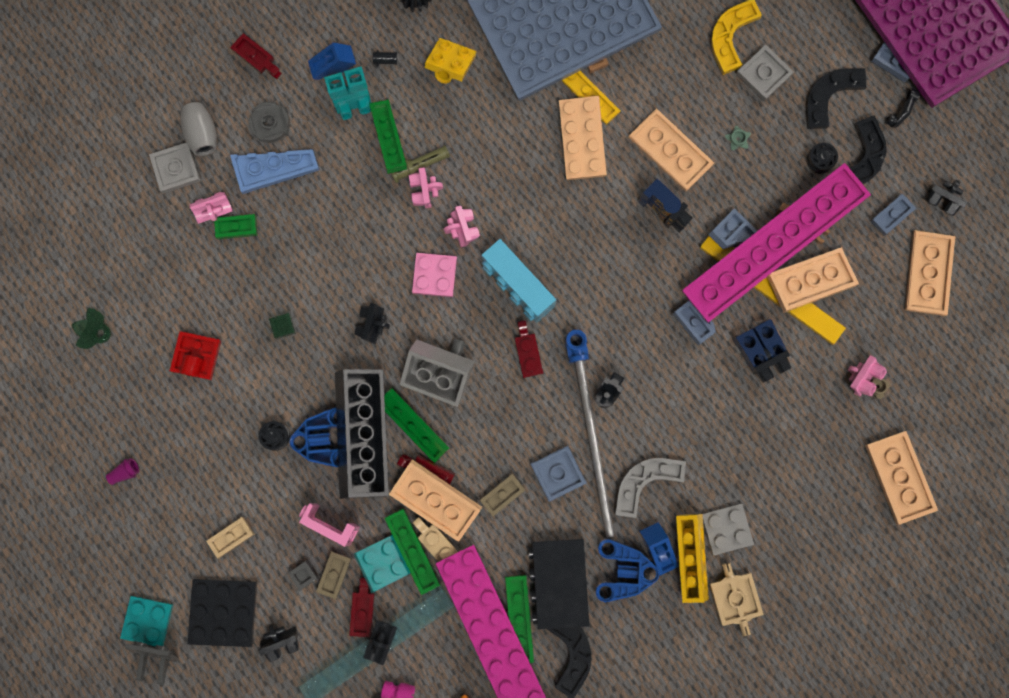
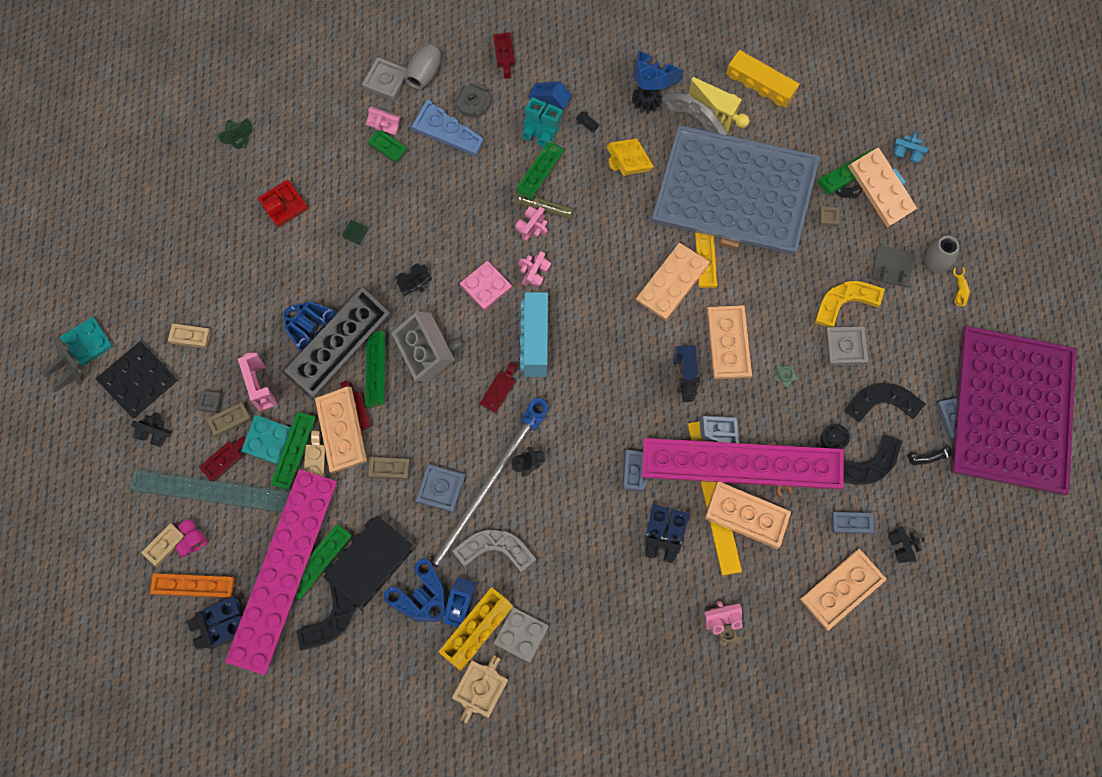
camera: 40 degrees right, 10 degrees down
(125, 470) = (167, 235): magenta cone -> none
(274, 436) = (280, 296): black wheel -> none
(380, 642) = (212, 486): black hips -> none
(901, 478) = (683, 715): light nougat plate -> none

